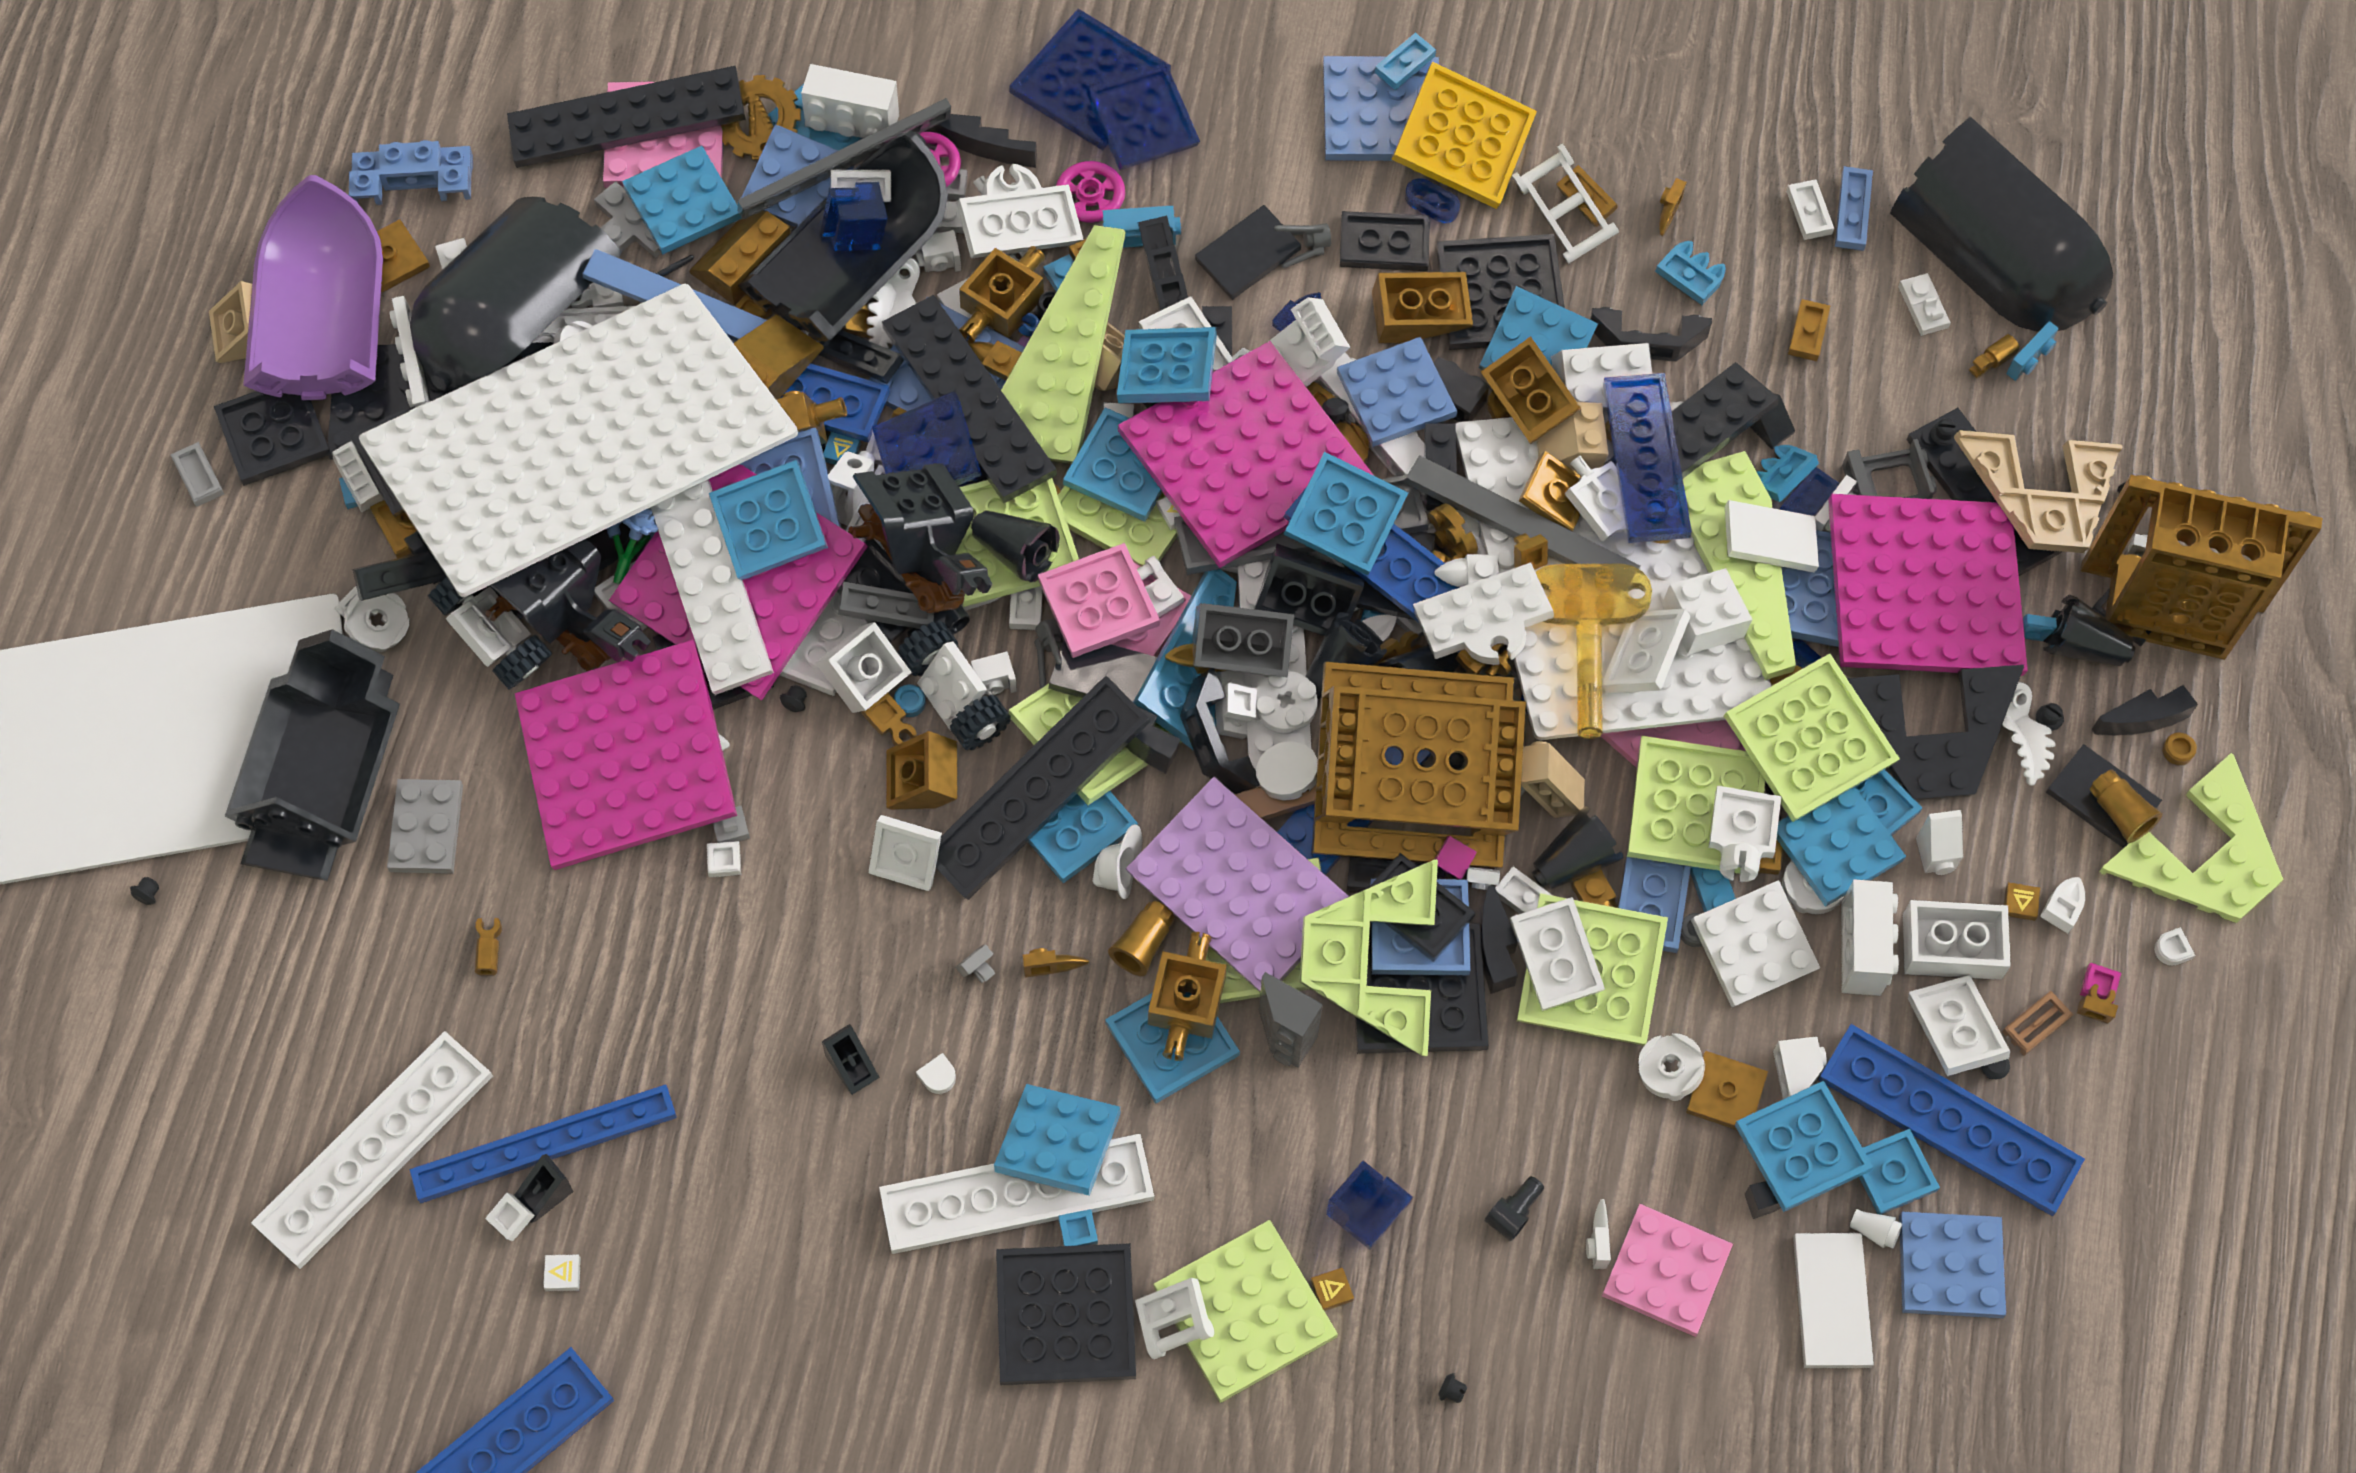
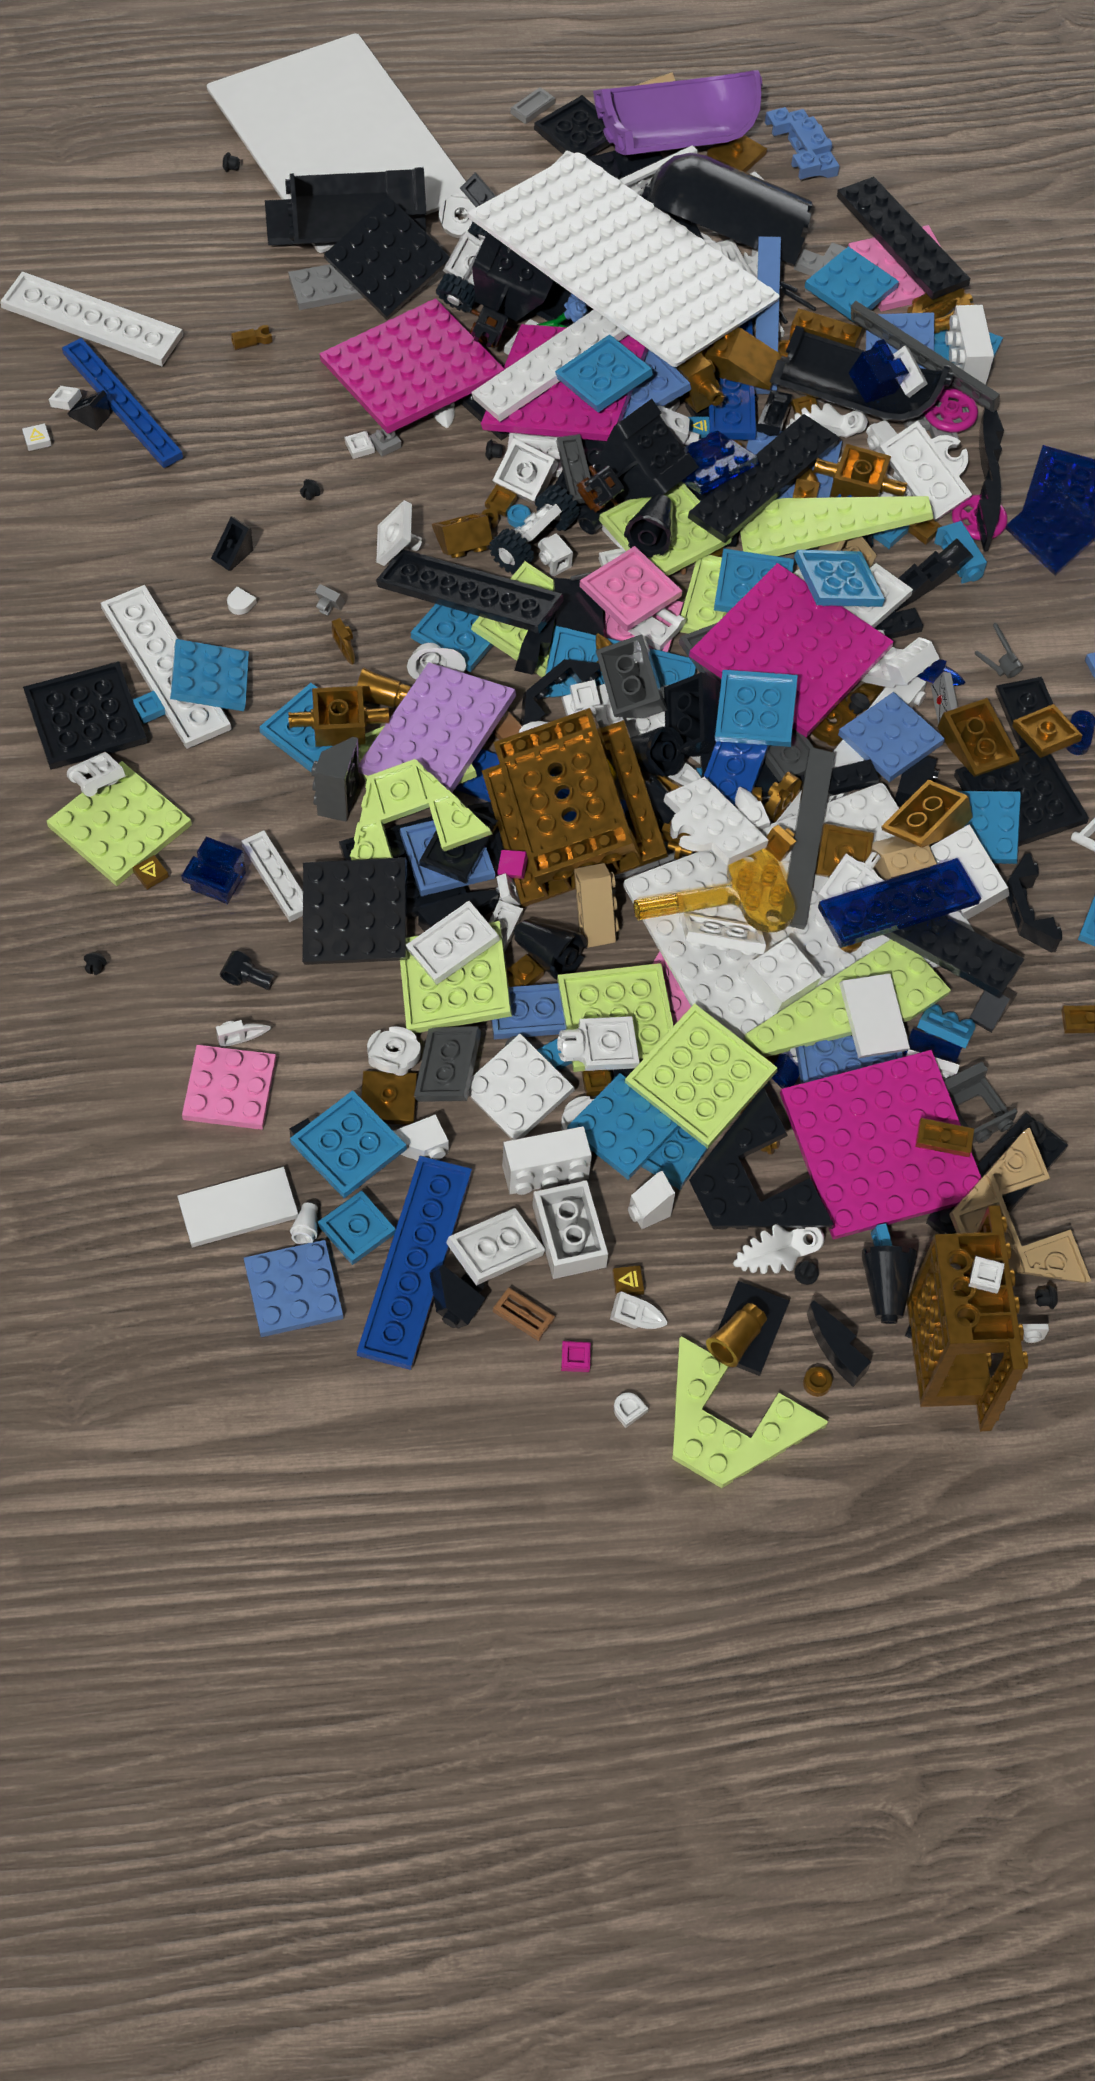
camera: 70 degrees right, 5 degrees down
(431, 730) = (387, 257): none -> black plate
(781, 939) = (310, 489): none -> black piece
(1102, 176) = (989, 505): none -> black slope
(1247, 252) = (973, 625): black tile -> none
(1354, 321) = (943, 694): none -> light grey tile
(1383, 1137) = (275, 874): none -> white plate
(1428, 231) = (1047, 730): none -> pearl gold plate
(1474, 1055) = (354, 911): none -> black plate
(1707, 1010) = (447, 1064): none -> dark grey plate
(1949, 517) = (944, 1137): none -> pearl gold plate
(2016, 1088) = (454, 1297): none -> black slope
(2097, 1008) = (549, 1352): pearl gold tile -> none
(2212, 514) = (986, 1274): none -> white tile

